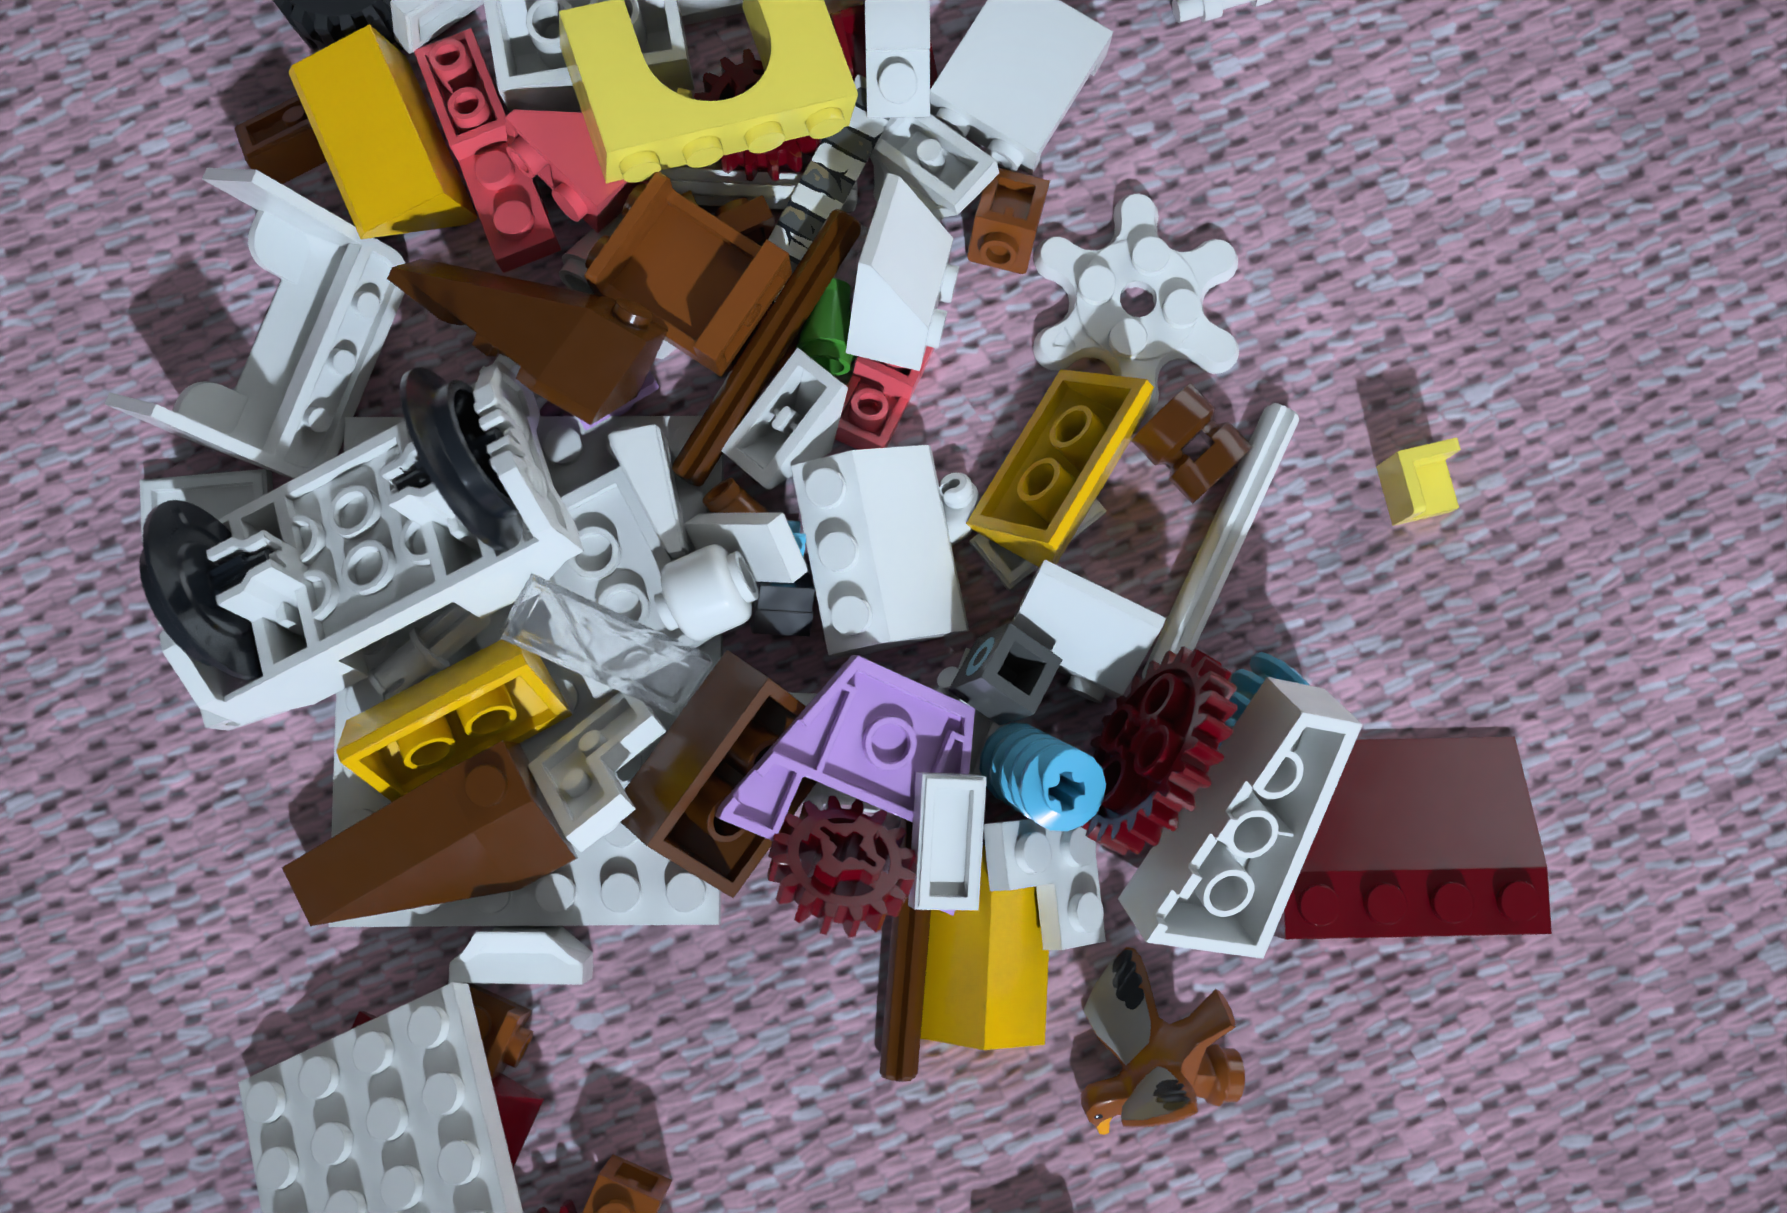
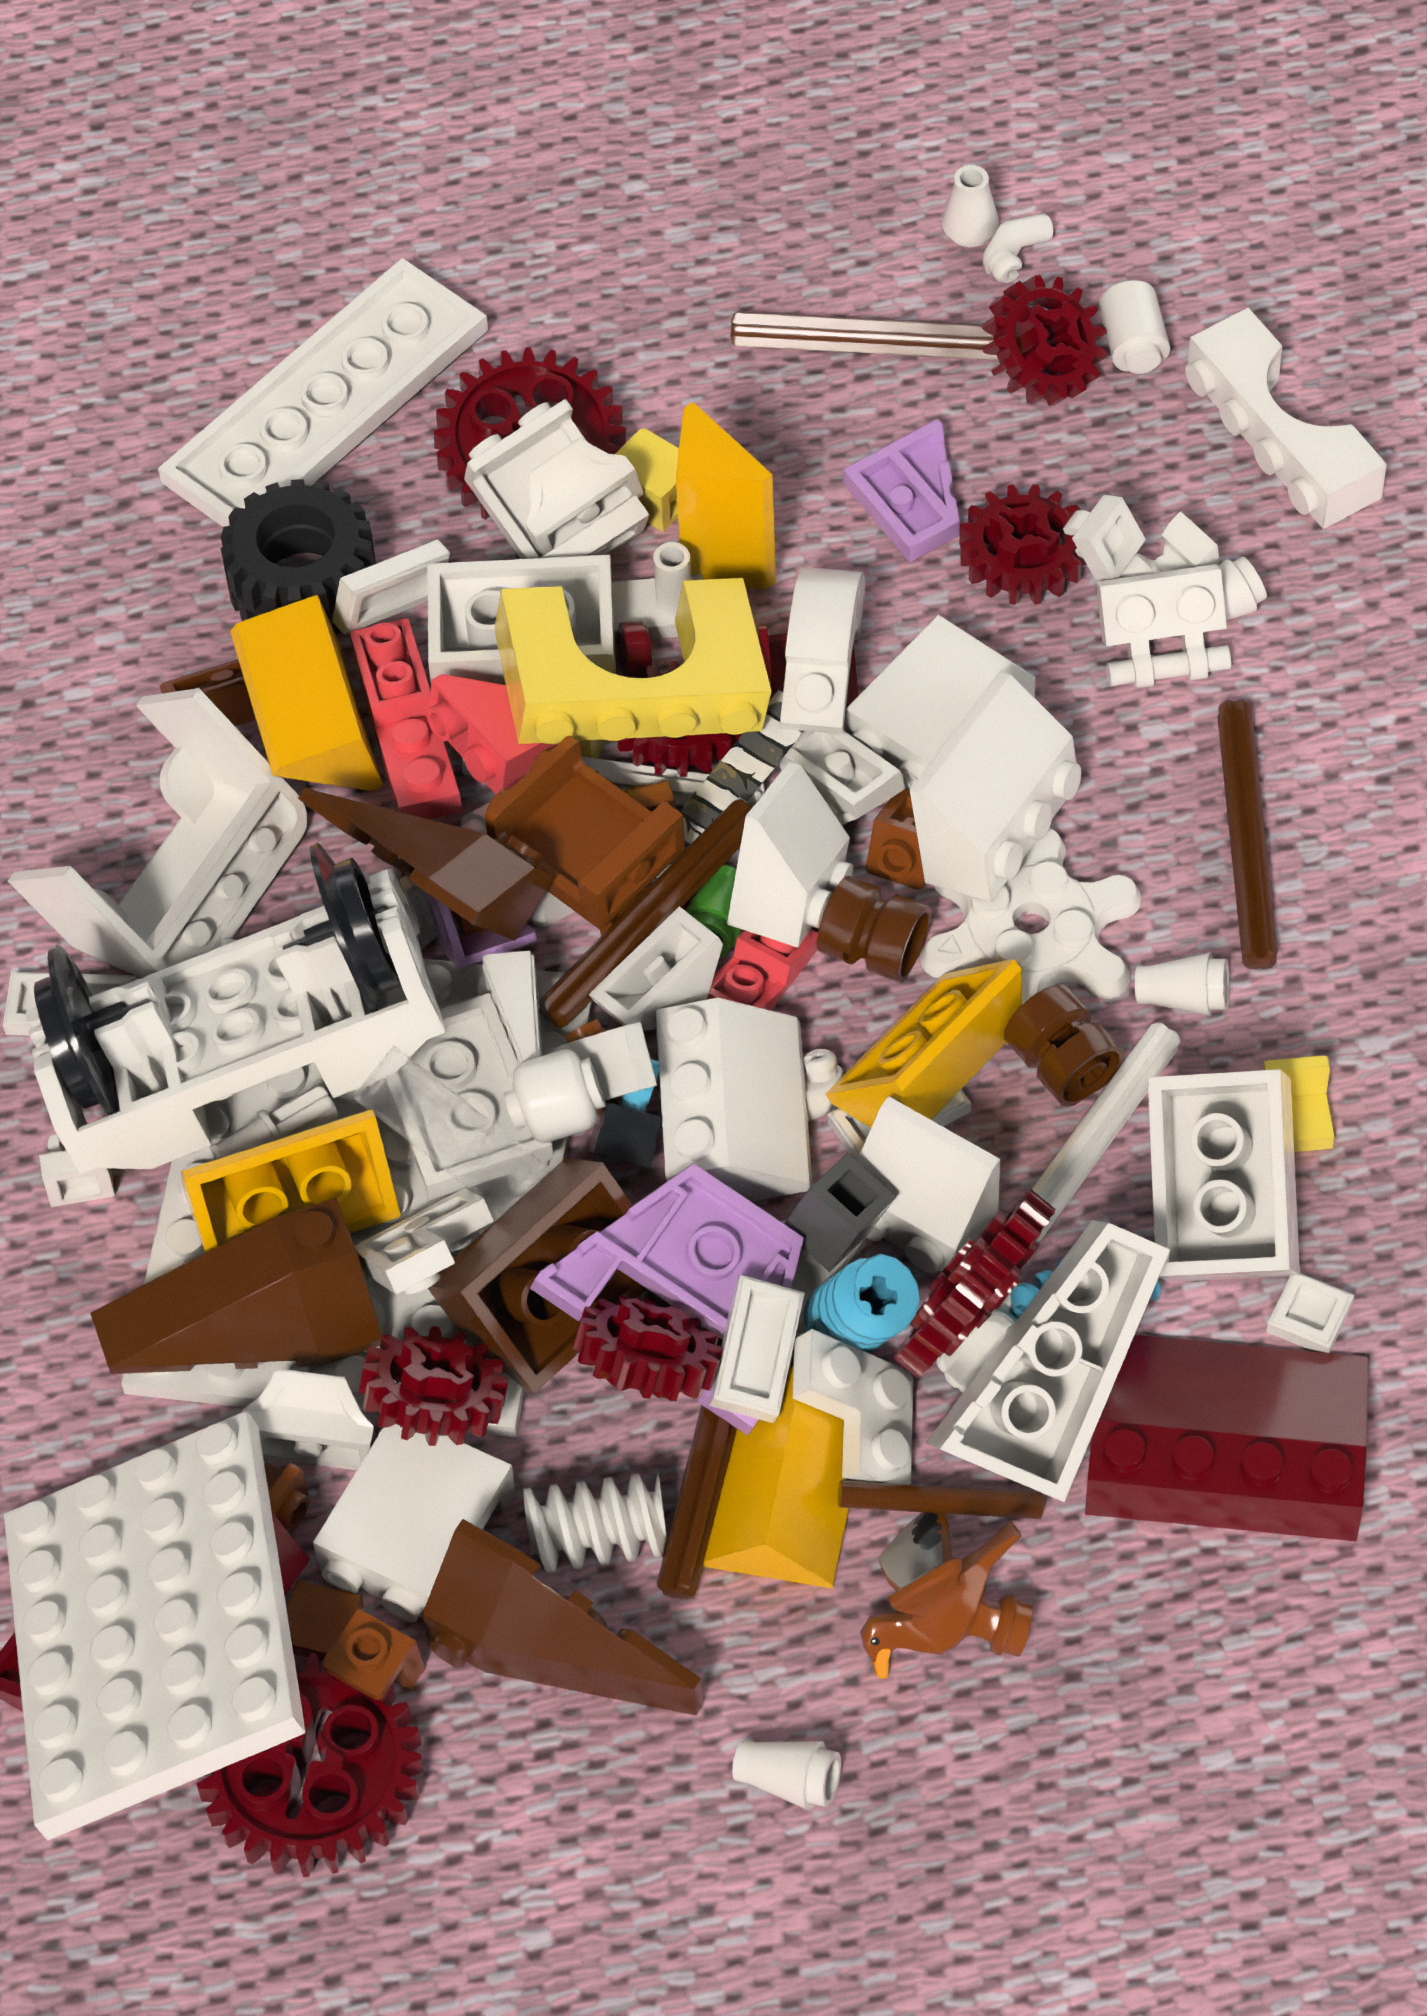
camera: 15 degrees right, 25 degrees down
(564, 1152) = (318, 1617): none -> dark orange tile
(627, 894) = (433, 1385): none -> dark red gear
(635, 1043) = (402, 1514): none -> white panel
(705, 38) = (634, 648): none -> dark red tile
(757, 1148) = (512, 1625): none -> reddish brown wedge
(813, 1025) = (596, 1522): none -> white piece
(989, 335) = (870, 928): none -> reddish brown wheel
(1093, 173) = (992, 791): none -> white slope
(1106, 956) = (940, 1499): none -> reddish brown bar
(1297, 356) = (1185, 984): none -> white cone
(1332, 176) = (1247, 835): none -> reddish brown axle
(1380, 589) = (1224, 1175): none -> white brick
(1455, 697) = (1310, 1313): none -> white tile

